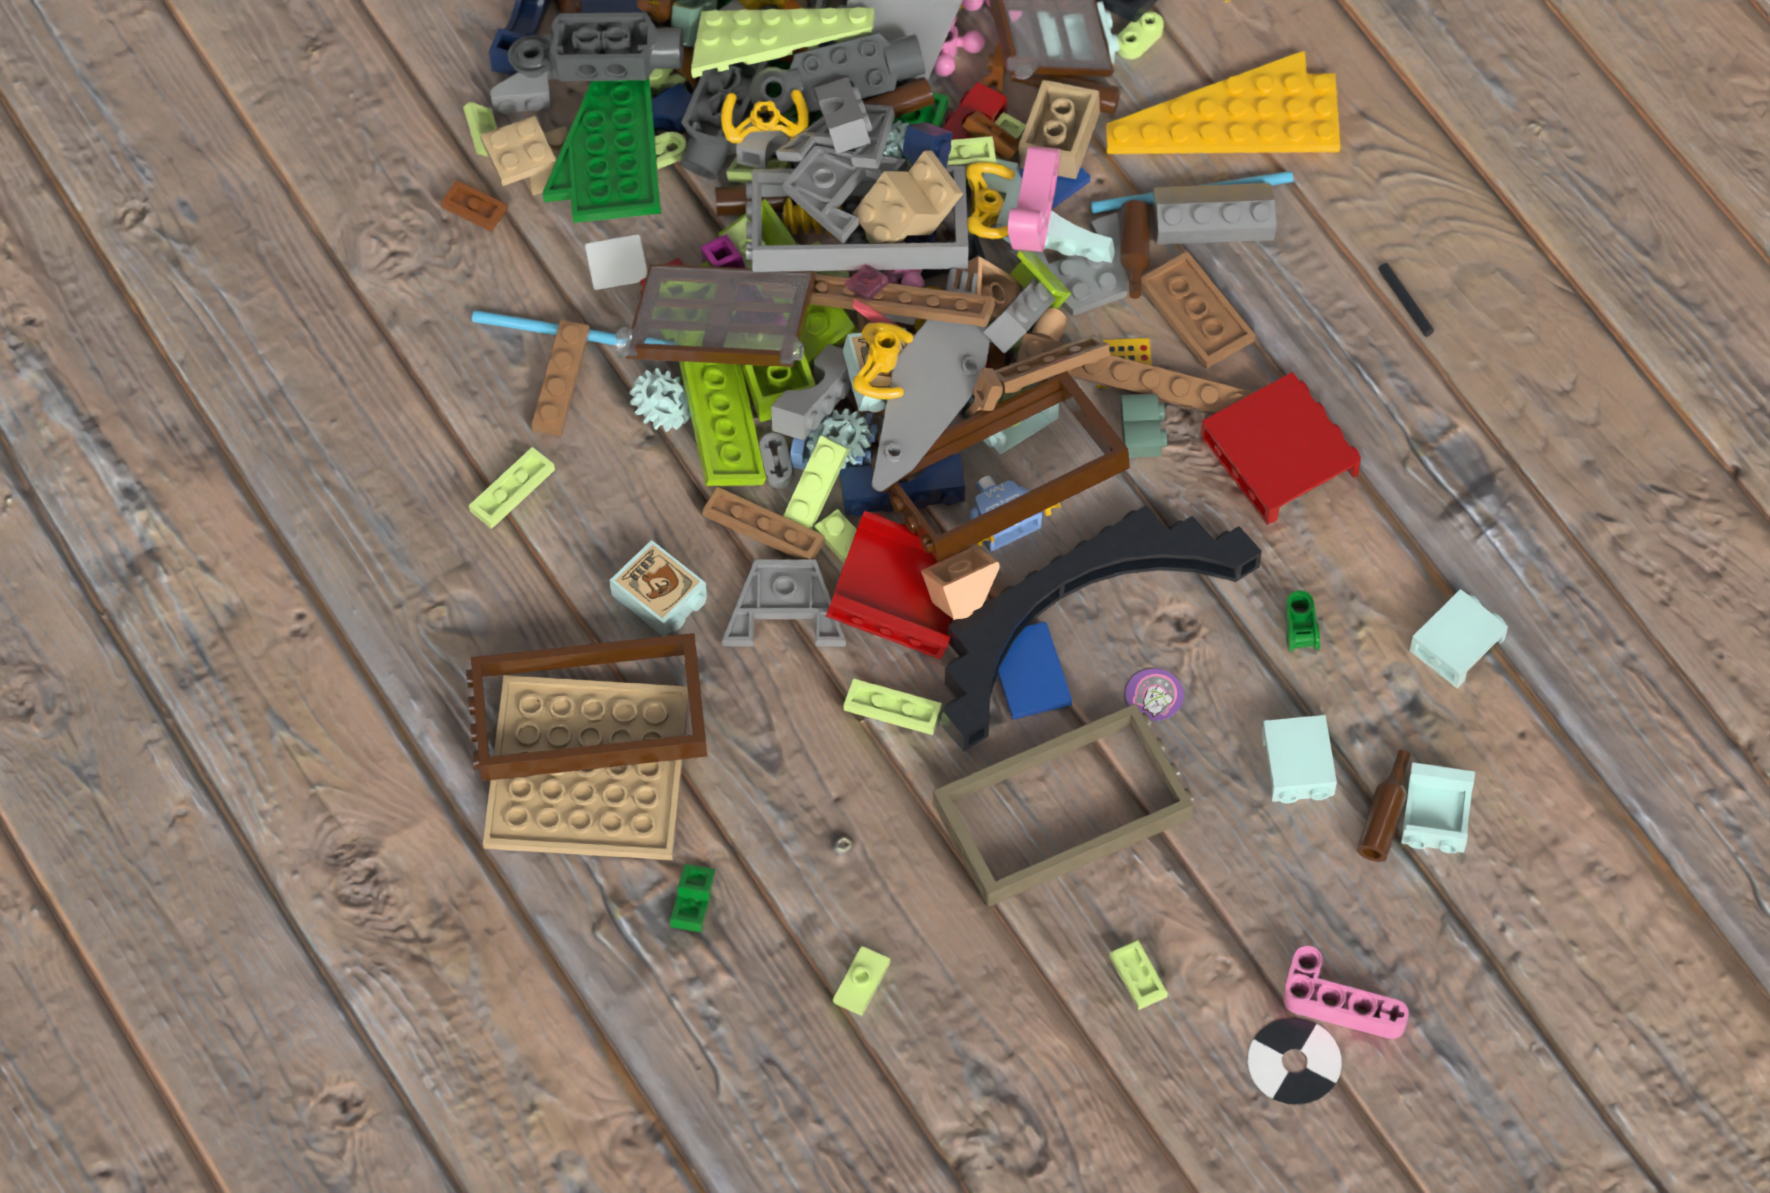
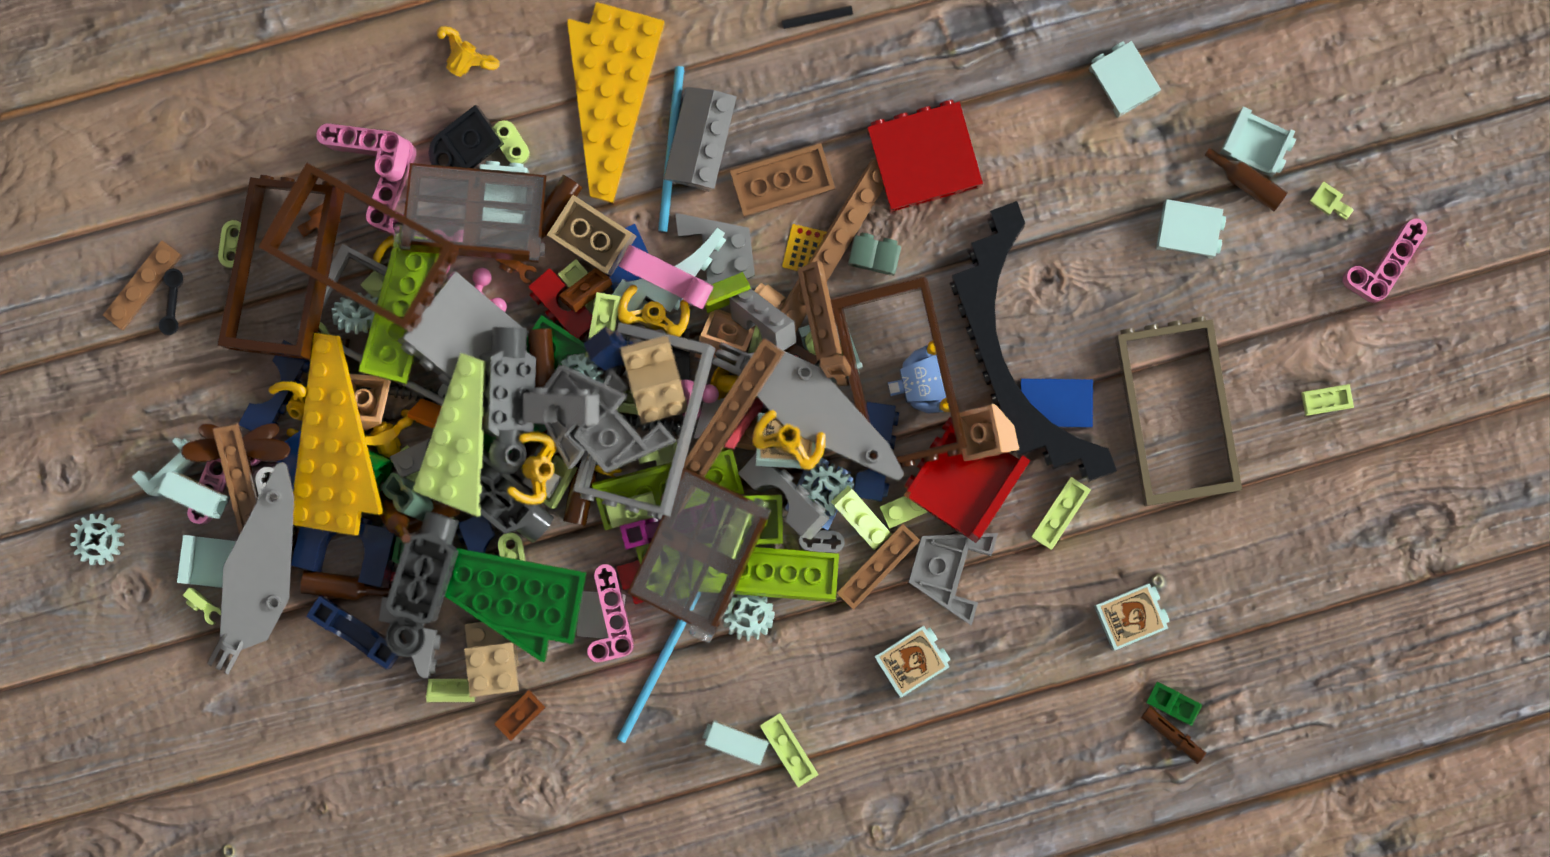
camera: 70 degrees left, 25 degrees up
(504, 421) = (735, 742): none -> light aqua brick
(560, 378) = (700, 687): medium nougat plate -> none
(588, 756) = (1004, 828): reddish brown door -> none
(593, 810) = (1046, 754): tan plate -> none
(647, 915) = (1176, 737): none -> reddish brown pin
(654, 248) = (608, 612): none -> bright pink beam
(788, 816) = (1132, 616): none -> brick
(861, 980) = (1274, 599): yellowish green plate -> none
(867, 282) = (709, 430): clear pink tile -> none
(1135, 242) = (713, 209): reddish brown piece -> none
(1155, 693) = (1100, 316): sticker -> none
(1287, 1087) = (1420, 330): sticker -> none
(1301, 627) = (1080, 191): green piece -> none
(1394, 910) = (1328, 199): none -> yellowish green plate

